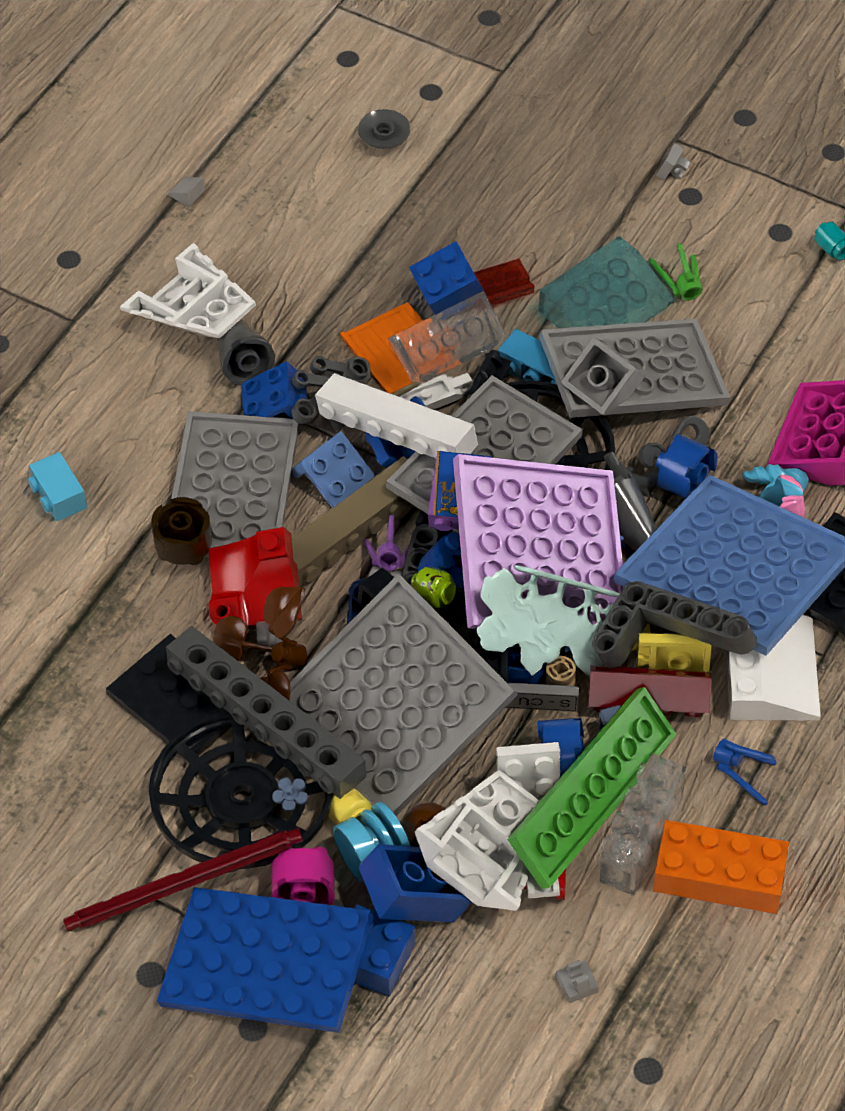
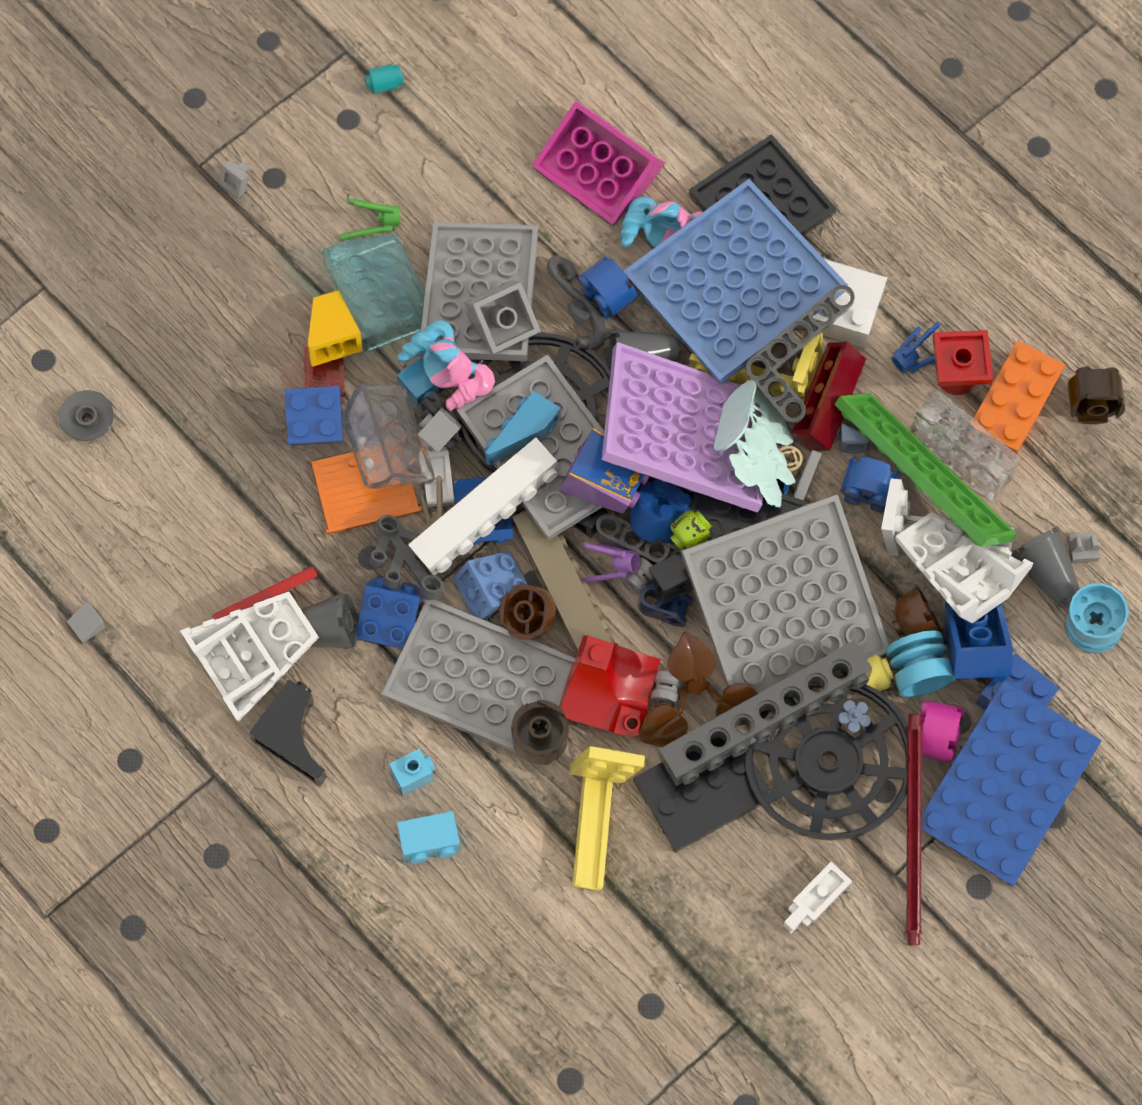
camera: 75 degrees left, 15 degrees up
(91, 821) = (817, 897): none -> white hinge
(118, 456) = (412, 771): none -> medium azure brick
(118, 609) = (599, 771): none -> light yellow bracket
(129, 351) = (282, 730): none -> black arch
(264, 306) = (269, 592): none -> red tile
(308, 495) = (527, 611): none -> reddish brown cylinder
(466, 368) = (438, 430): none -> light grey brick
(487, 1000) = (1100, 604): none -> medium azure wheel
(495, 427) = (533, 419): none -> dark azure slope
(536, 265) = (332, 330): none -> yellow slope
(536, 942) = (1051, 565): none -> dark grey cone
(539, 339) = (448, 365): none -> hair
(736, 788) = (962, 360): none -> red plant
(760, 939) = (1096, 395): none -> dark brown brick

